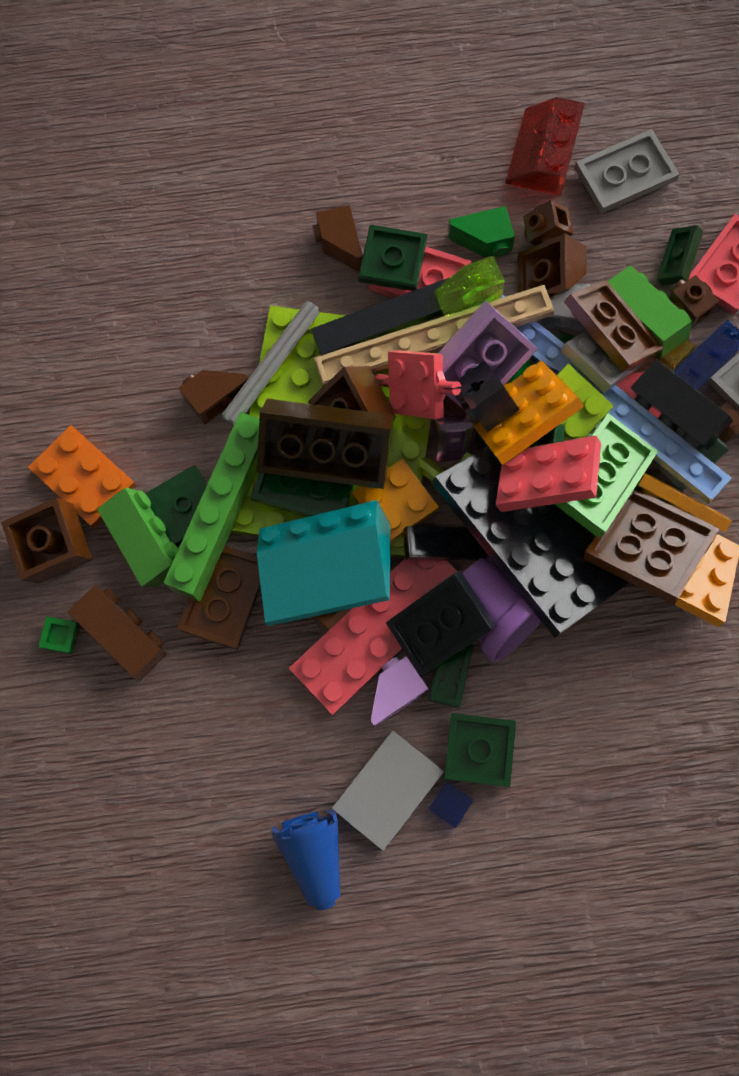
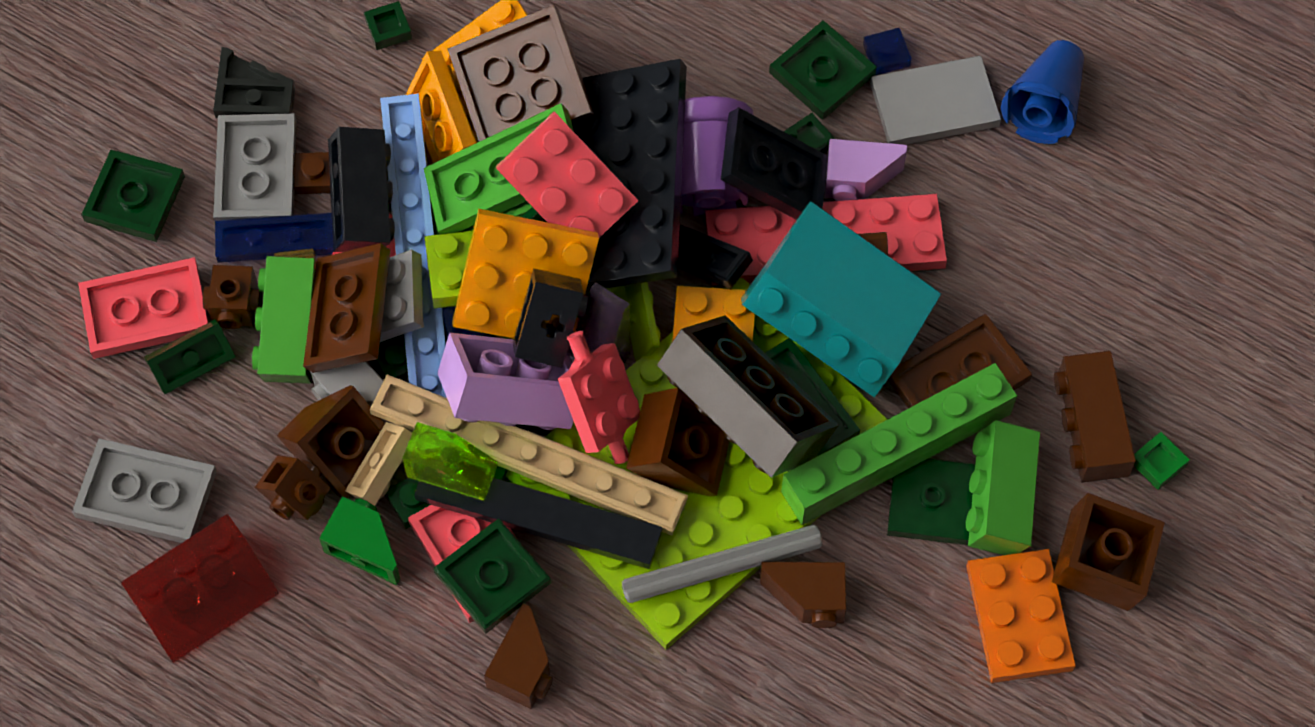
camera: 145 degrees left, 10 degrees down
(512, 270) = (380, 464): none -> tan plate

